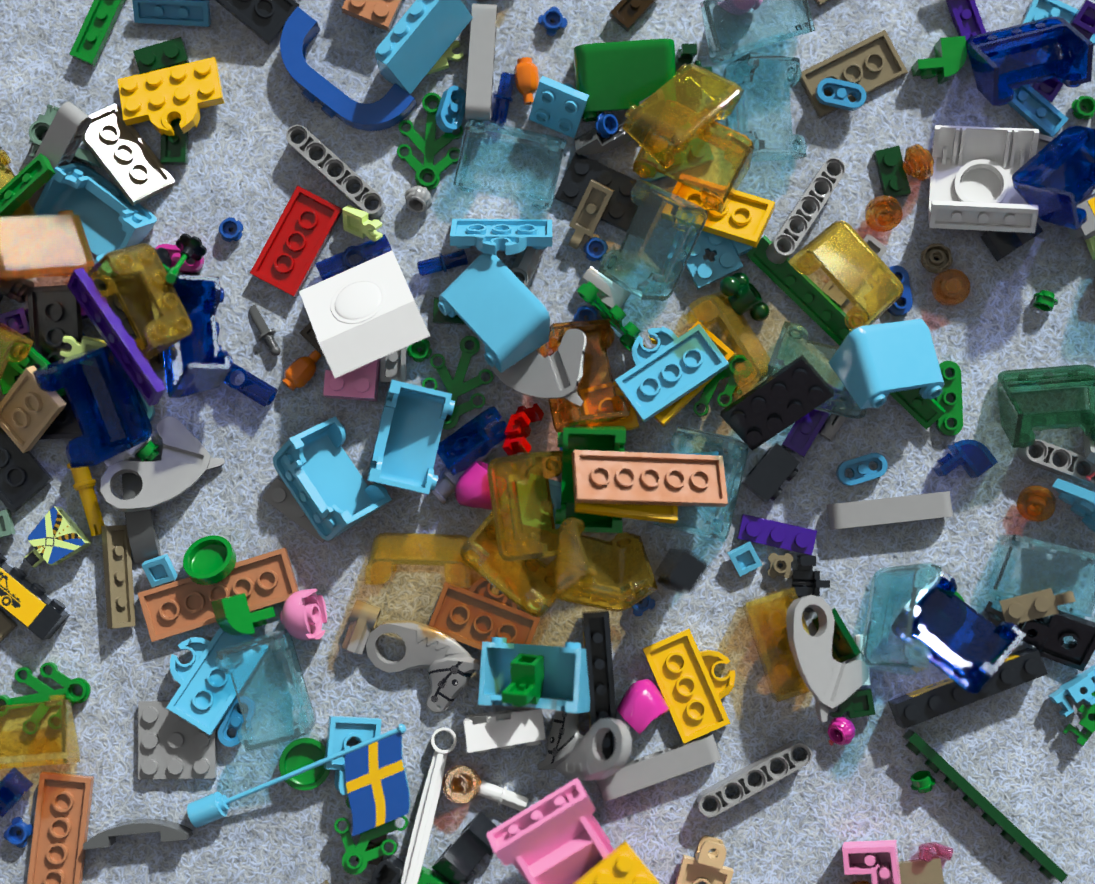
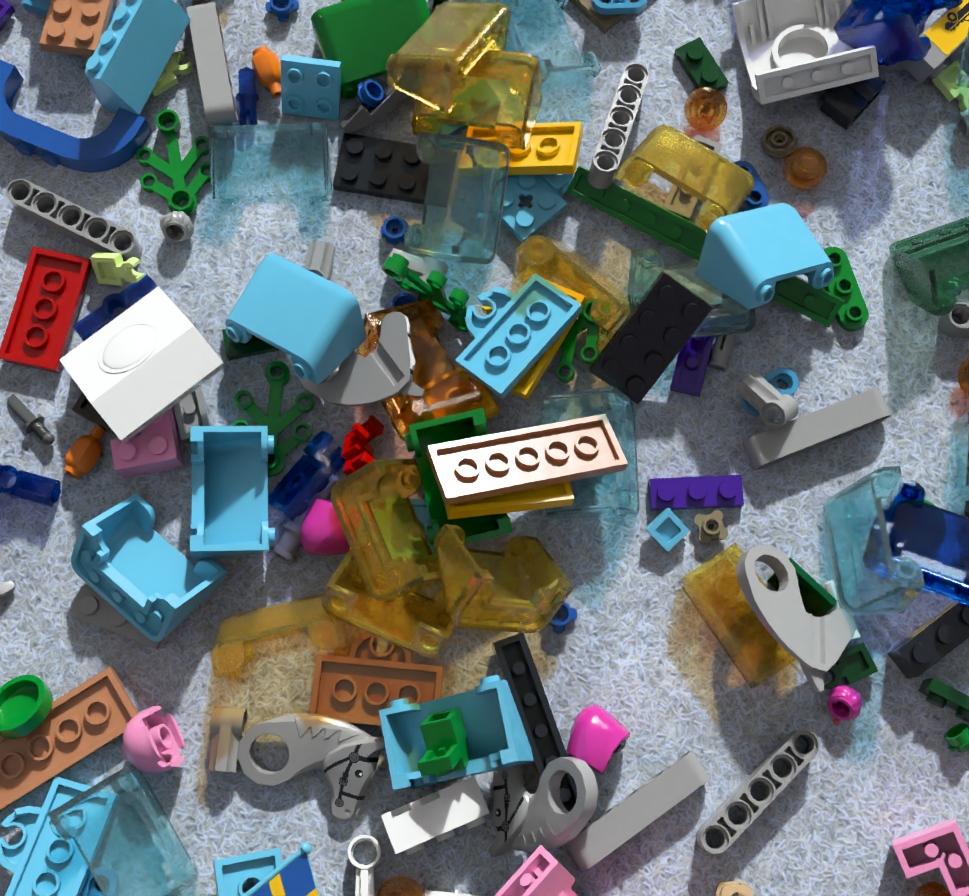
camera: 10 degrees left, 10 degrees down
(235, 617) = (64, 766): green brick -> none
(420, 356) = (219, 385): green plate -> none
(442, 262) = (221, 289): clear blue axle -> none
(449, 113) = (190, 121): dark azure plate -> none
(501, 234) = (280, 237): medium azure plate -> none
(589, 212) = (376, 189): dark tan plate -> none
(680, 570) = (595, 548): black brick -> none
(690, 684) = (647, 697): yellow plate -> none
(744, 296) = (578, 235): dark green piece -> none
(771, 473) = (667, 422): black brick -> none
(806, 580) = (747, 533): black piece -> none
(859, 486) = (766, 399): none -> light grey piece
(918, 162) = (727, 46): clear orange plate -> none
(969, 454) = (888, 342): clear blue brick -> none
(1044, 300) = (912, 156): green plate -> none

